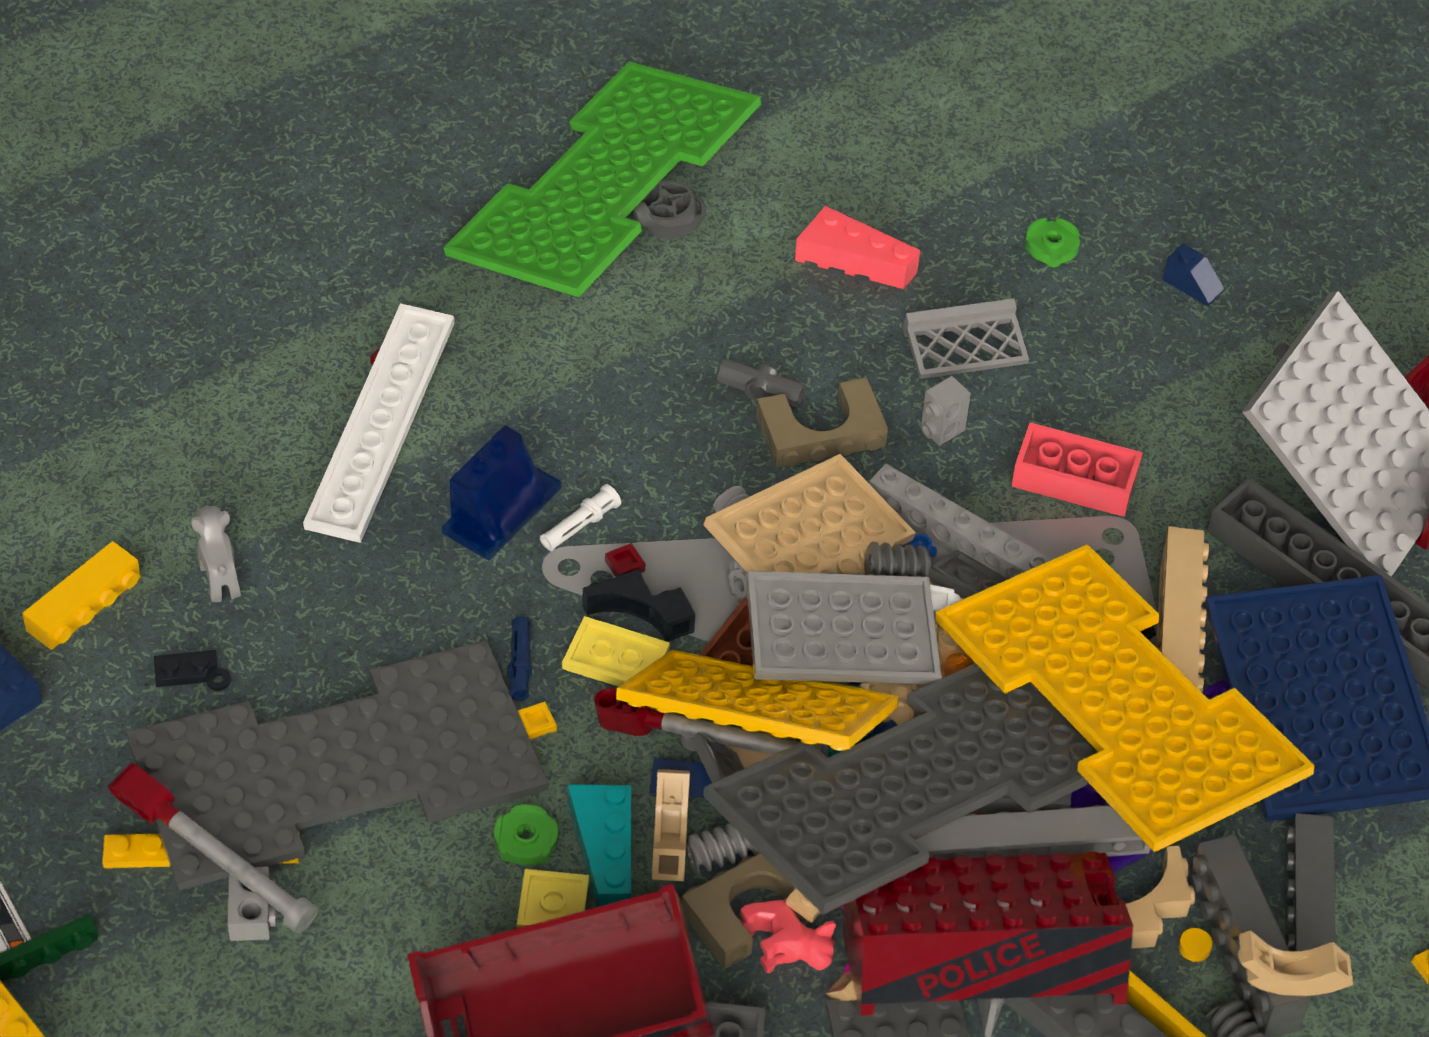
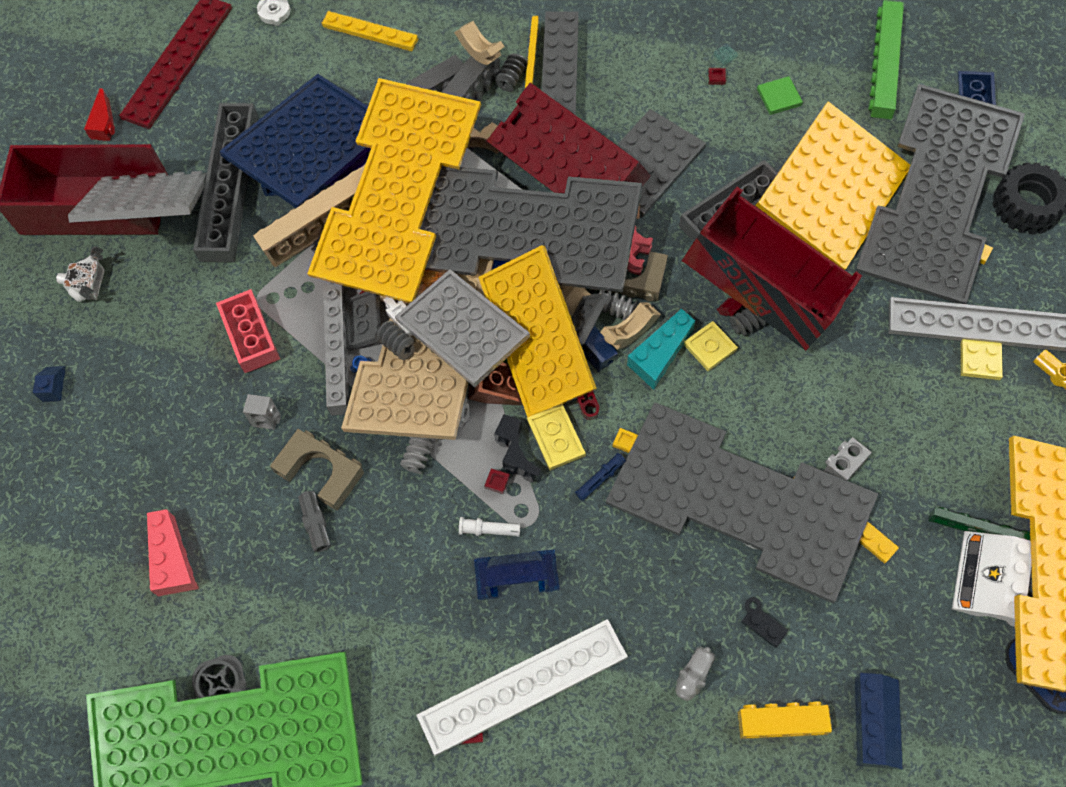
camera: 125 degrees left, 15 degrees up
(154, 801) = (861, 539): flat silver piece -> none
(526, 851) = (689, 377): bright green plate -> none
(960, 318) = (184, 466): light grey fence -> none
(1052, 253) = (82, 475): bright green plate -> none
(1195, 944) = (482, 118): yellow tile -> none

